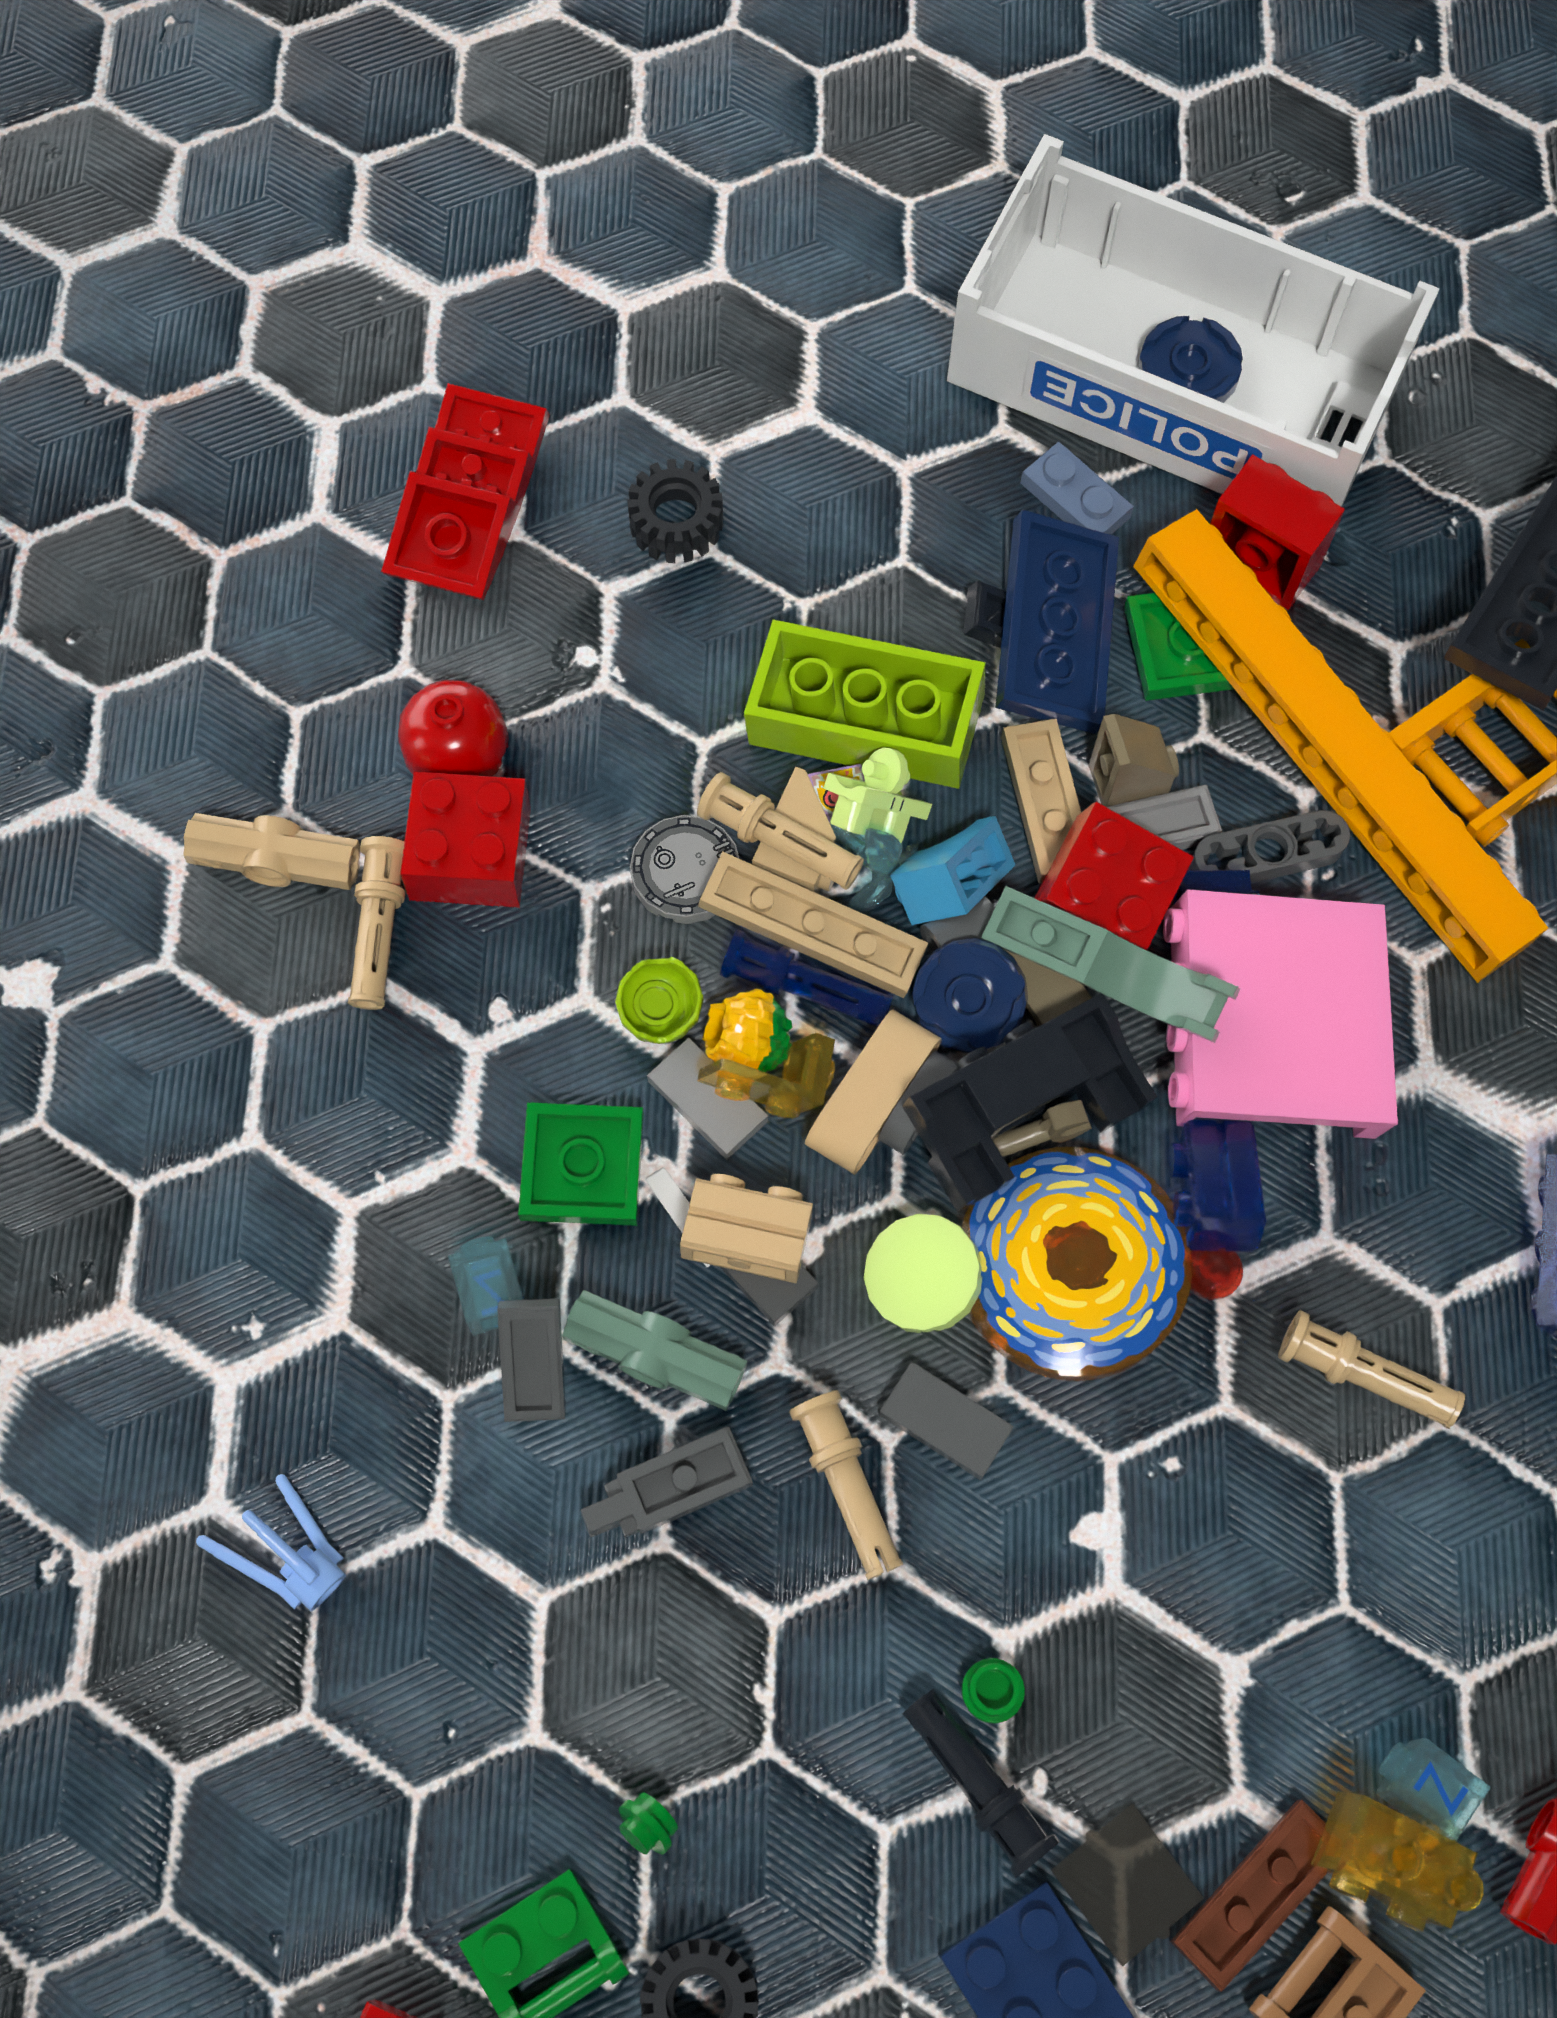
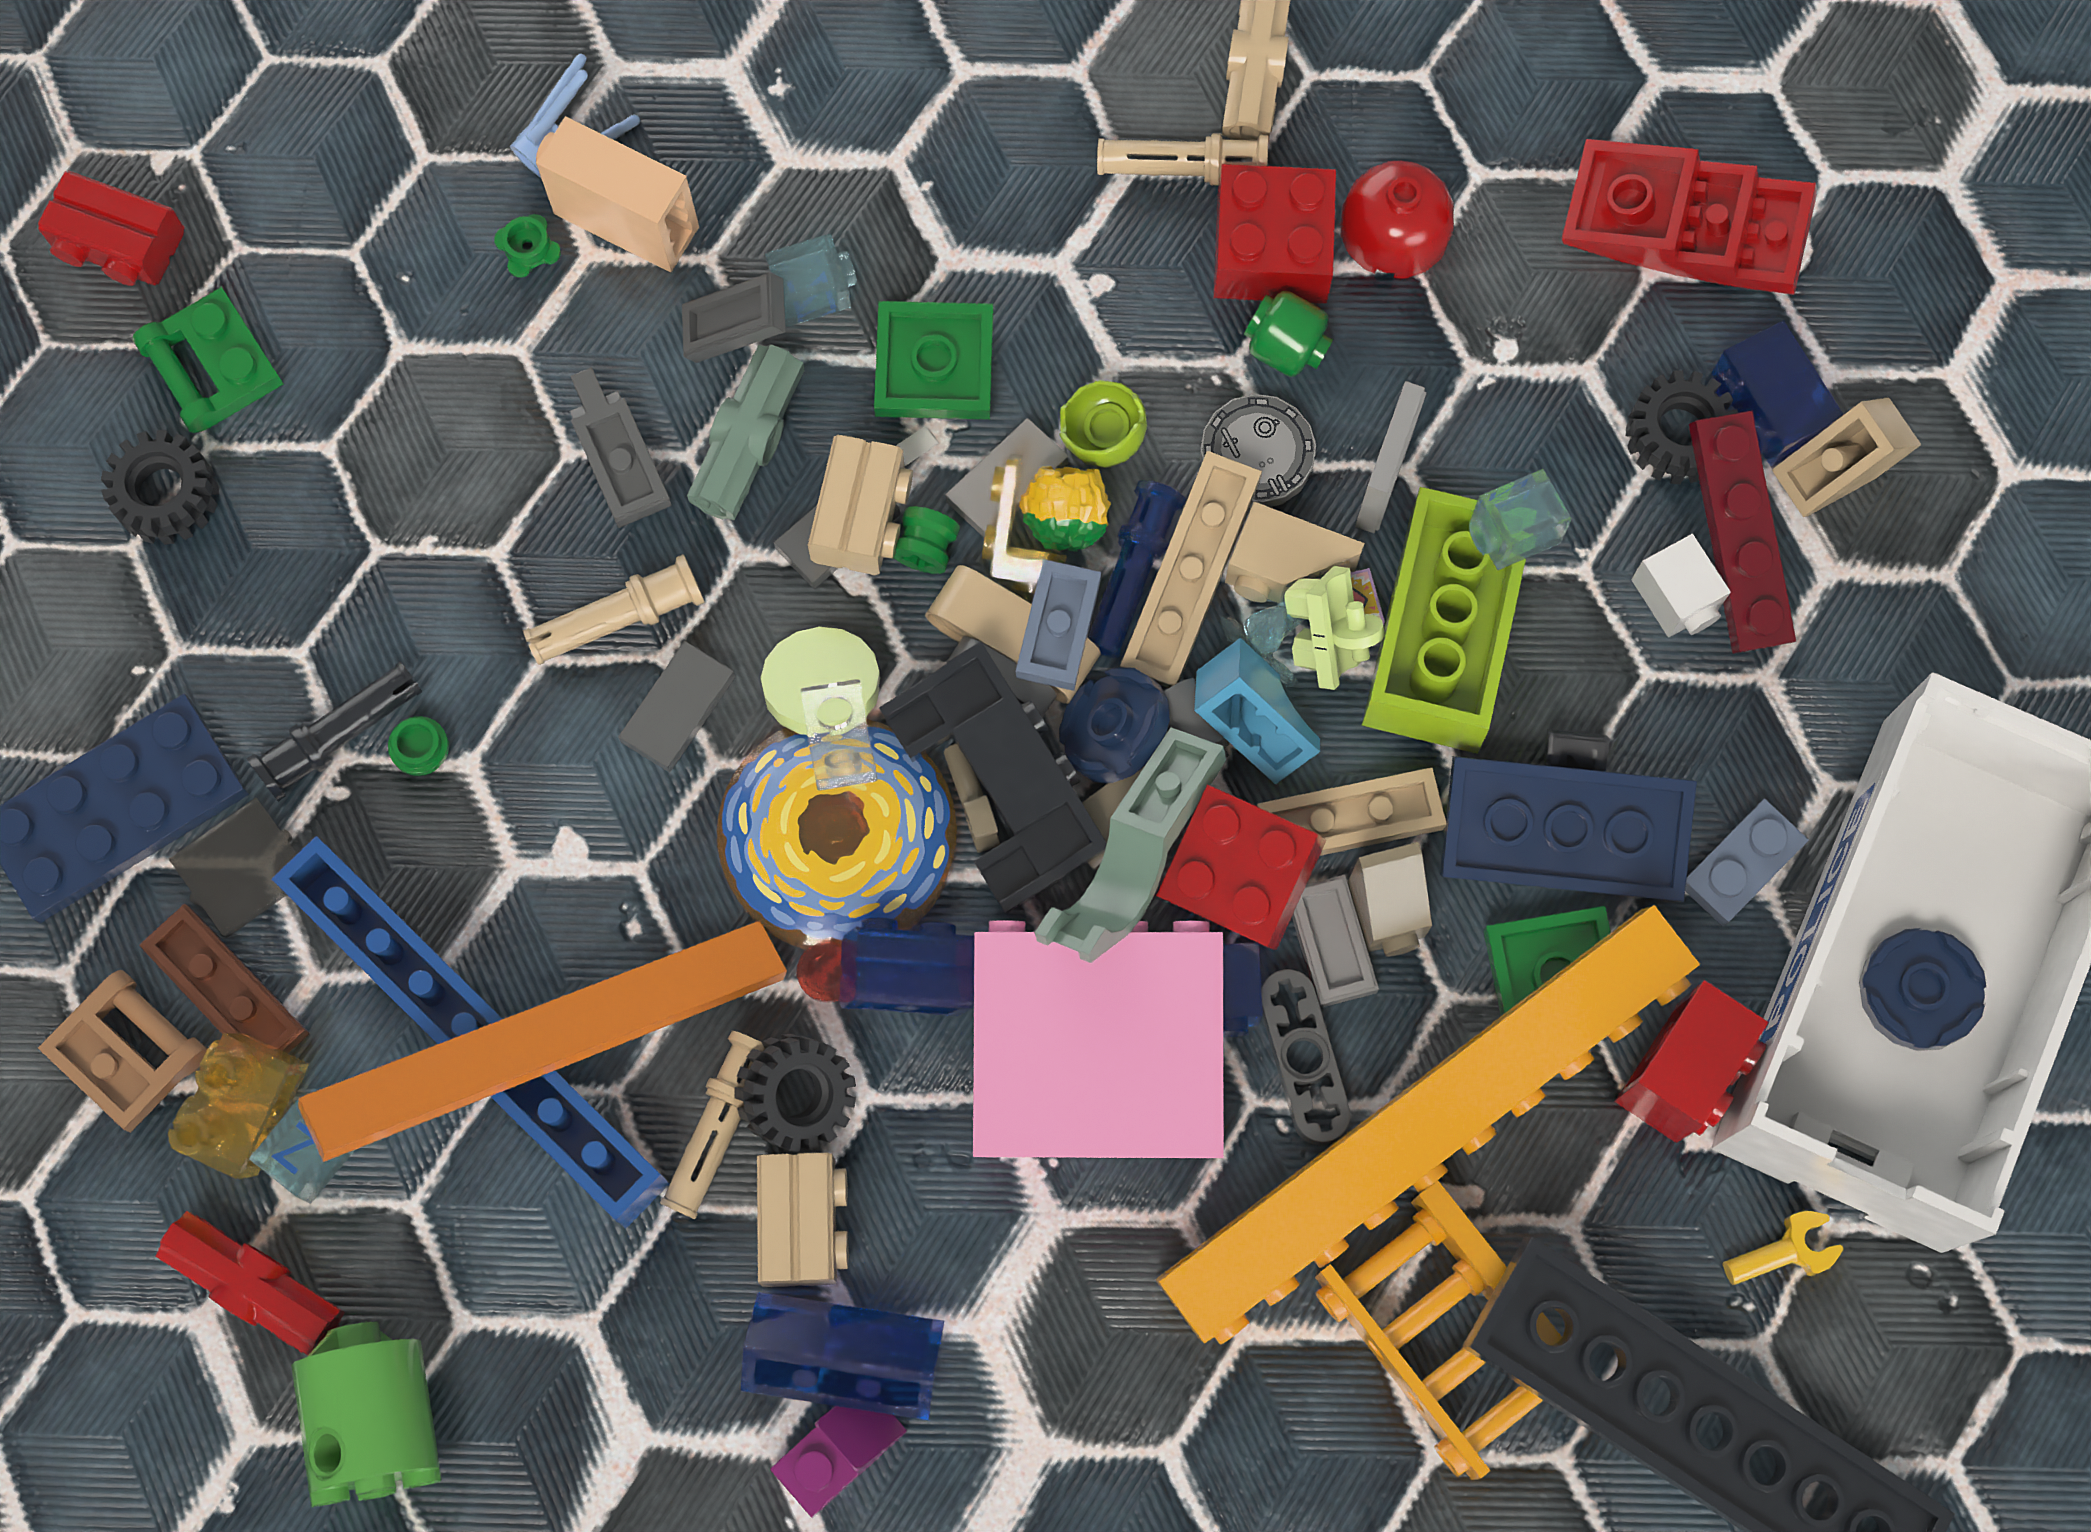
camera: 90 degrees right, 5 degrees up
(386, 1480) = (617, 193): none -> light nougat brick
(408, 1586) = (523, 230): none -> green plate
(572, 831) = (1288, 333): none -> green head
(646, 430) = (1780, 388): none -> clear blue brick
(647, 1824) = (311, 438): green plate -> none
(709, 384) = (1846, 455): none -> tan slope
(710, 739) = (1391, 457): none -> light grey tile
(759, 813) = (1294, 500): tan pin -> none
(776, 1167) = (926, 540): none -> green wheel
(781, 466) = (1742, 531): none -> dark red plate
(789, 622) = (1519, 520): none -> clear light blue brick
(830, 519) = (1681, 587): none -> white brick
(882, 1033) = (1058, 625): none -> sand blue plate
(1005, 1243) = (840, 752): none -> clear bracket
(1301, 1618) = (449, 1008): none -> blue brick
(1333, 1534) = (539, 1040): none -> orange tile
(1353, 1317) = (827, 1103): none -> black tyre
(1408, 484) = (1785, 1251): none -> yellow bar
(1459, 1291) = (799, 1219): none -> tan brick

